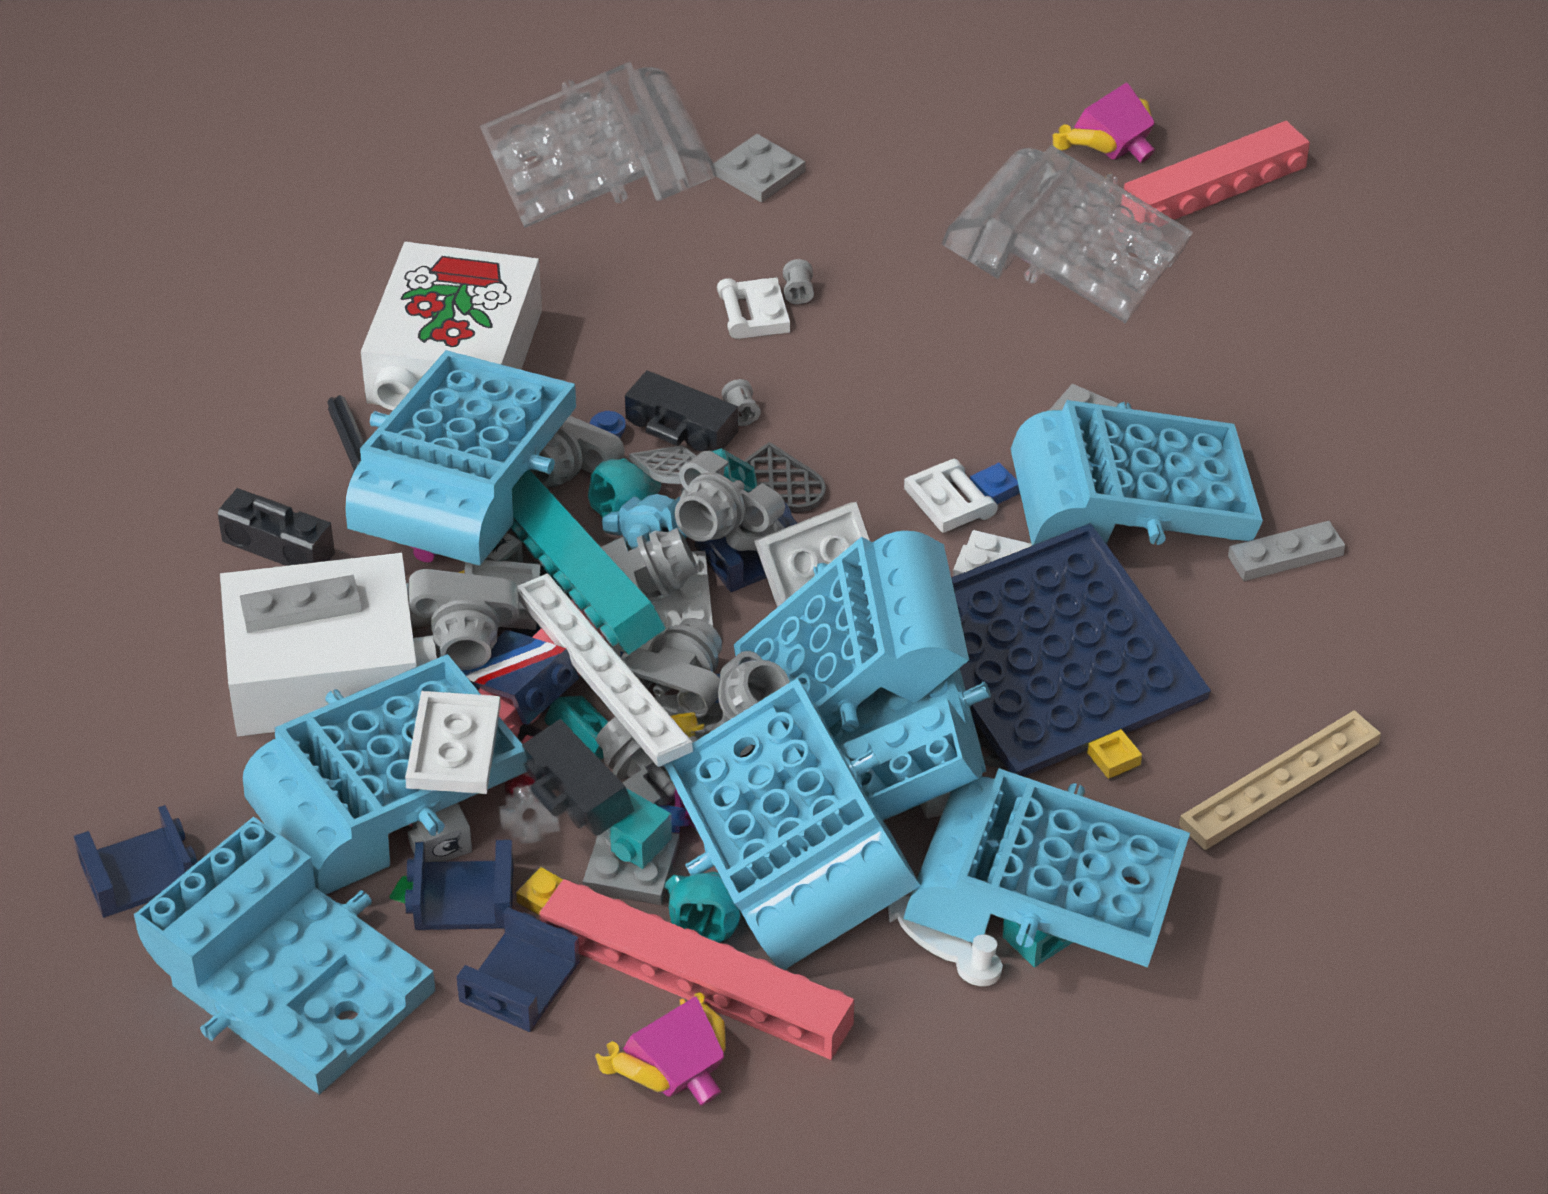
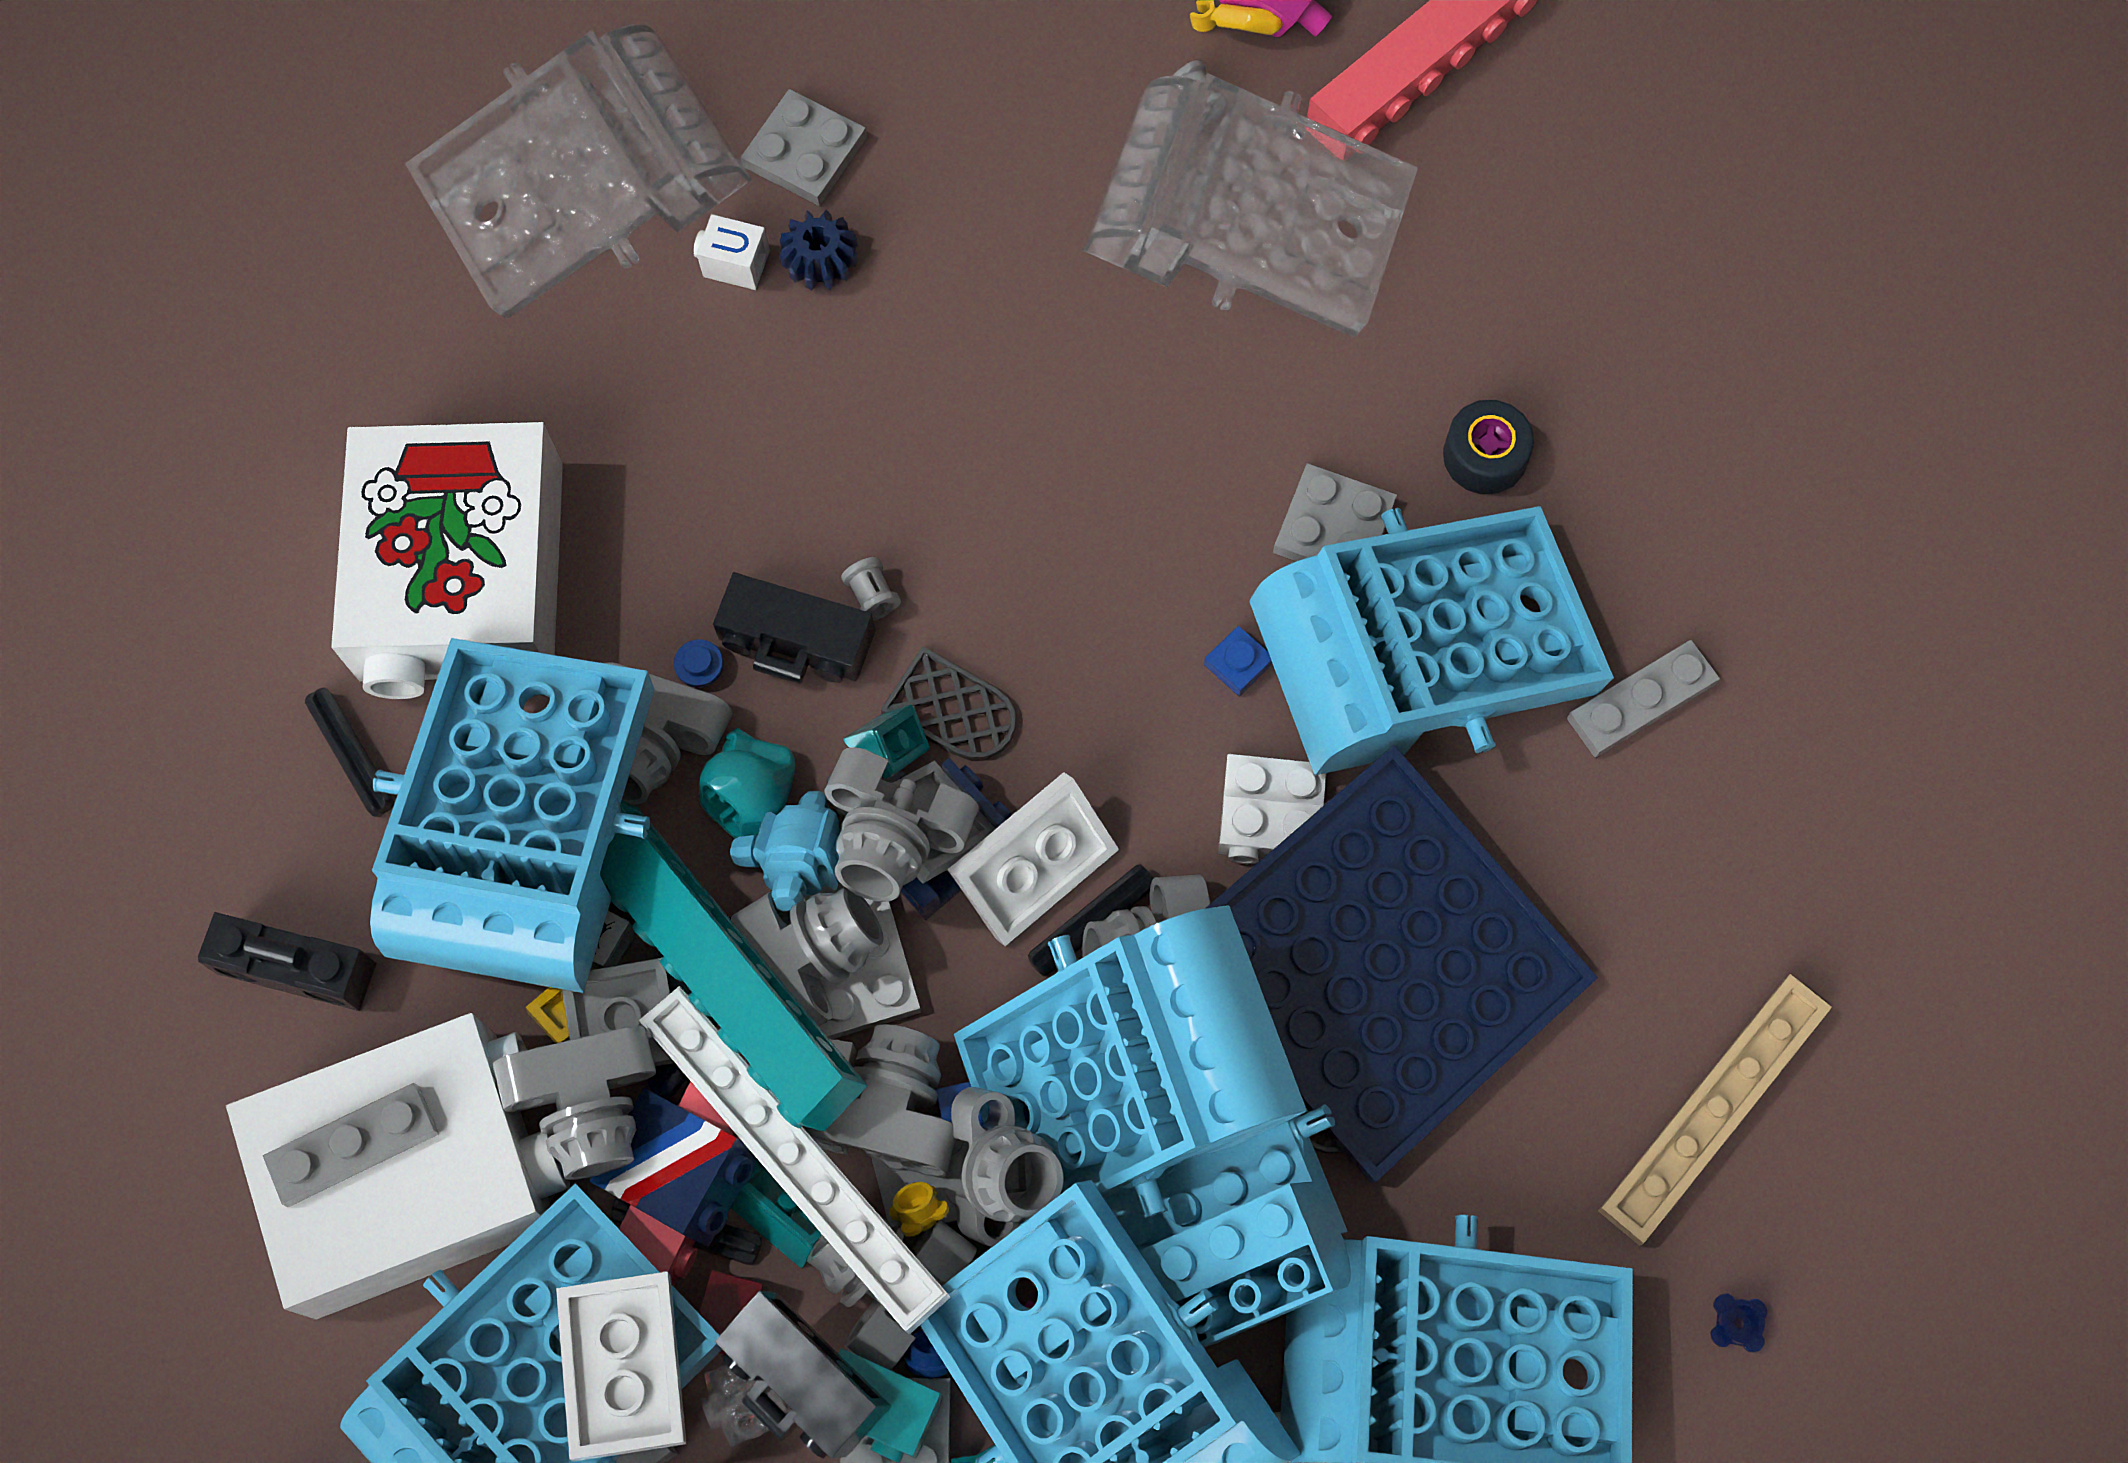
camera: 10 degrees left, 25 degrees up
(643, 460) = (784, 696): light grey window -> none
(693, 211) = (732, 251): none -> white brick
(754, 218) = (828, 236): none -> dark blue gear
(764, 305) = (865, 402): white plate -> none
(798, 285) = (902, 352): light grey bush -> none
(942, 502) = (1173, 707): white plate -> none
(1114, 753) = (1492, 1111): yellow plate -> none
(1206, 391) = (1494, 429): none -> black wheel
(1273, 896) = (1753, 1317): none -> clear blue plate

